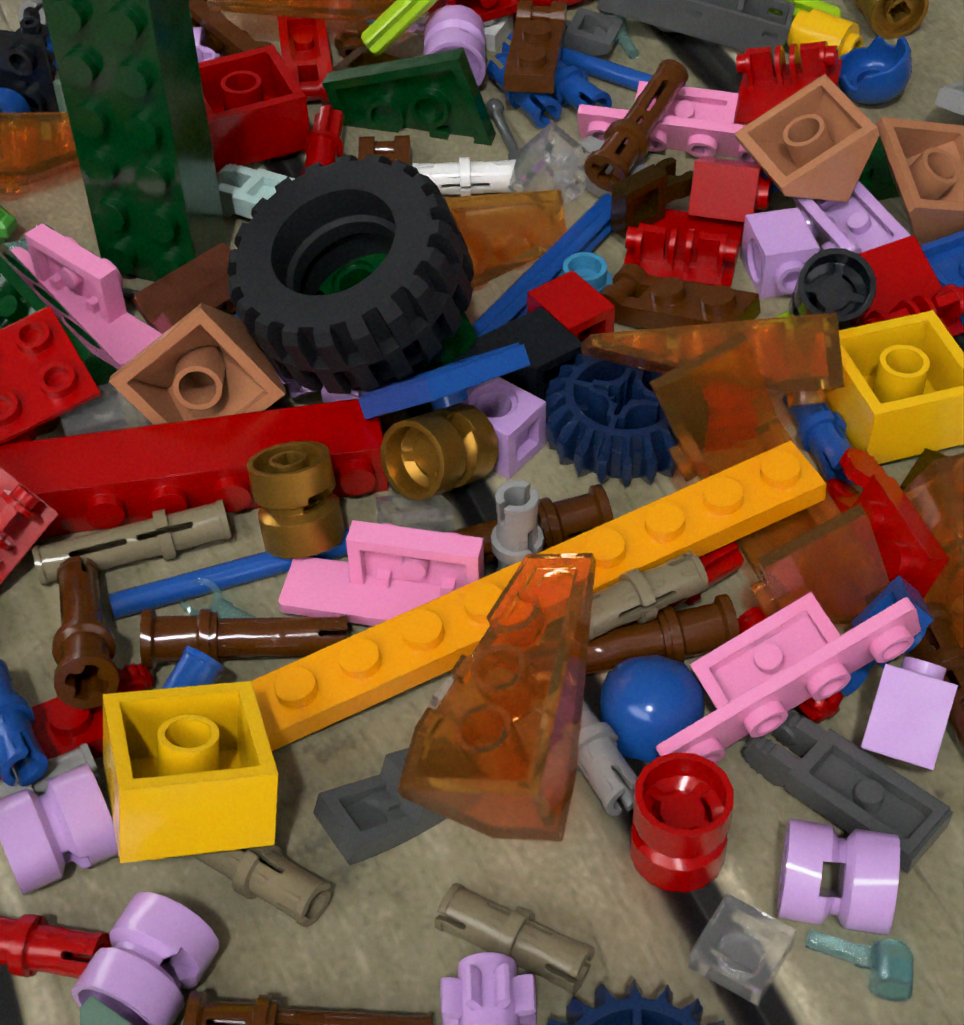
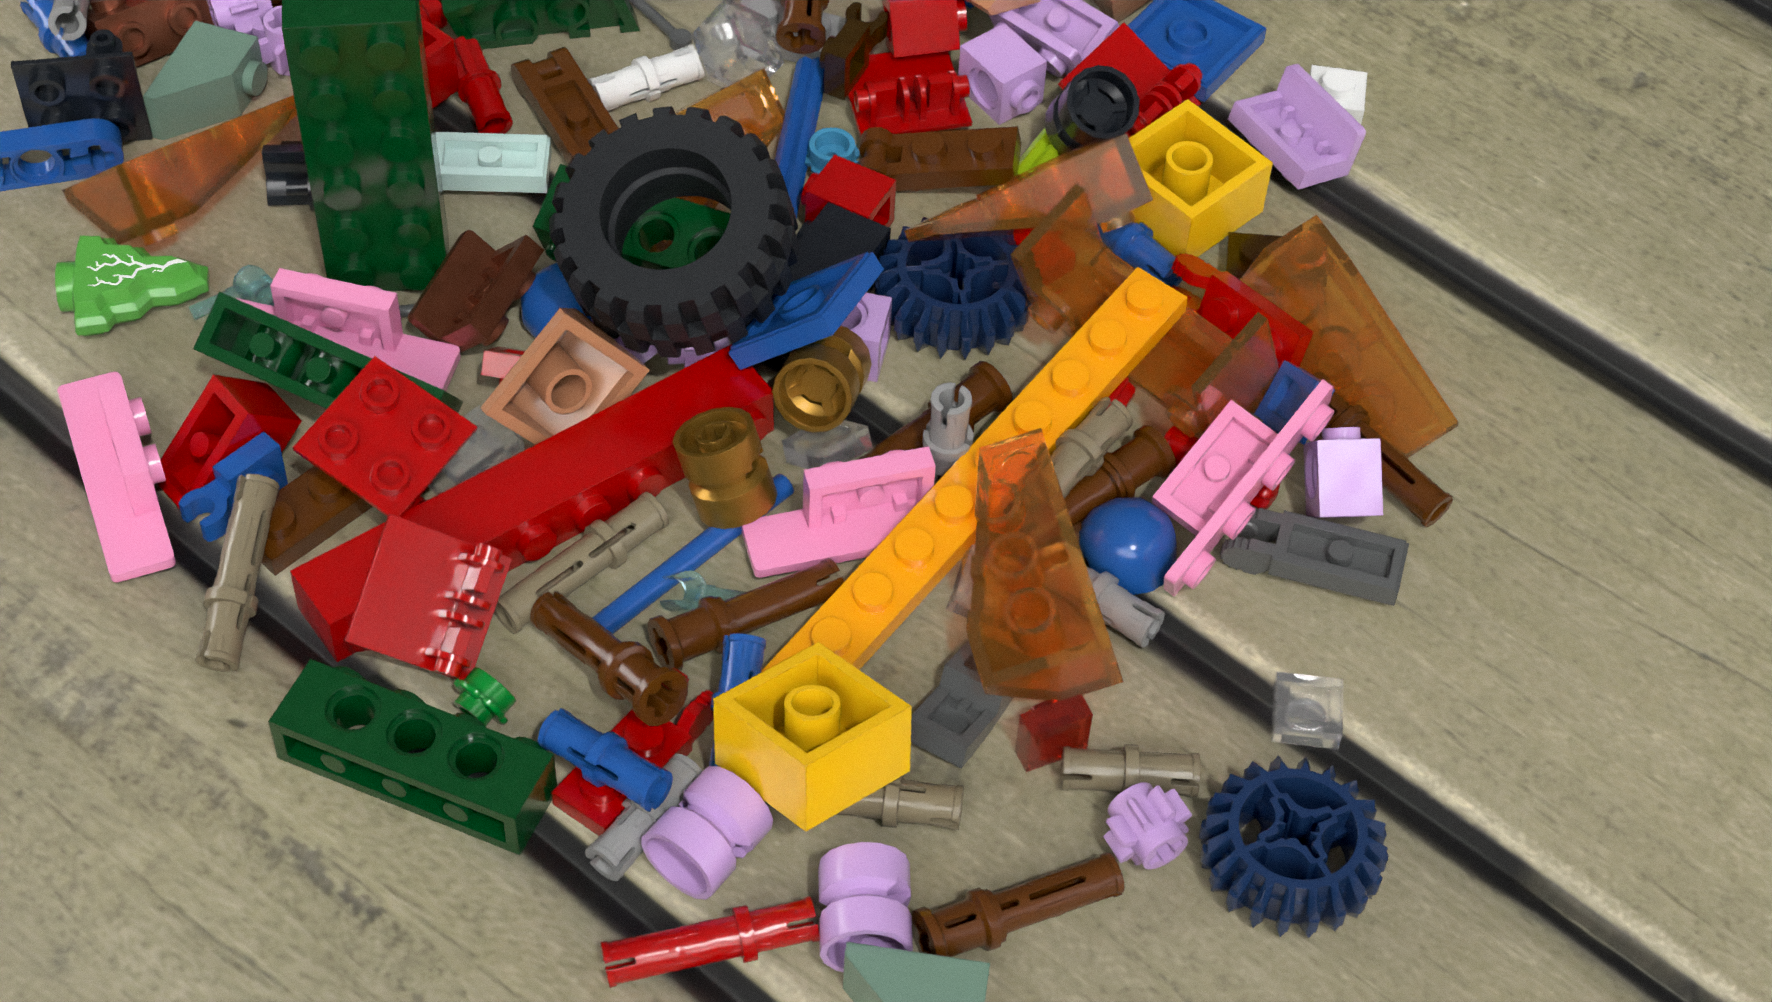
camera: 30 degrees left, 5 degrees up
(451, 858) = (1050, 727): none -> clear red plate
(681, 821) = (1214, 629): red wheel -> none
(865, 878) = (1362, 625): lavender wheel -> none
(887, 960) = (1416, 677): clear light blue hand -> none

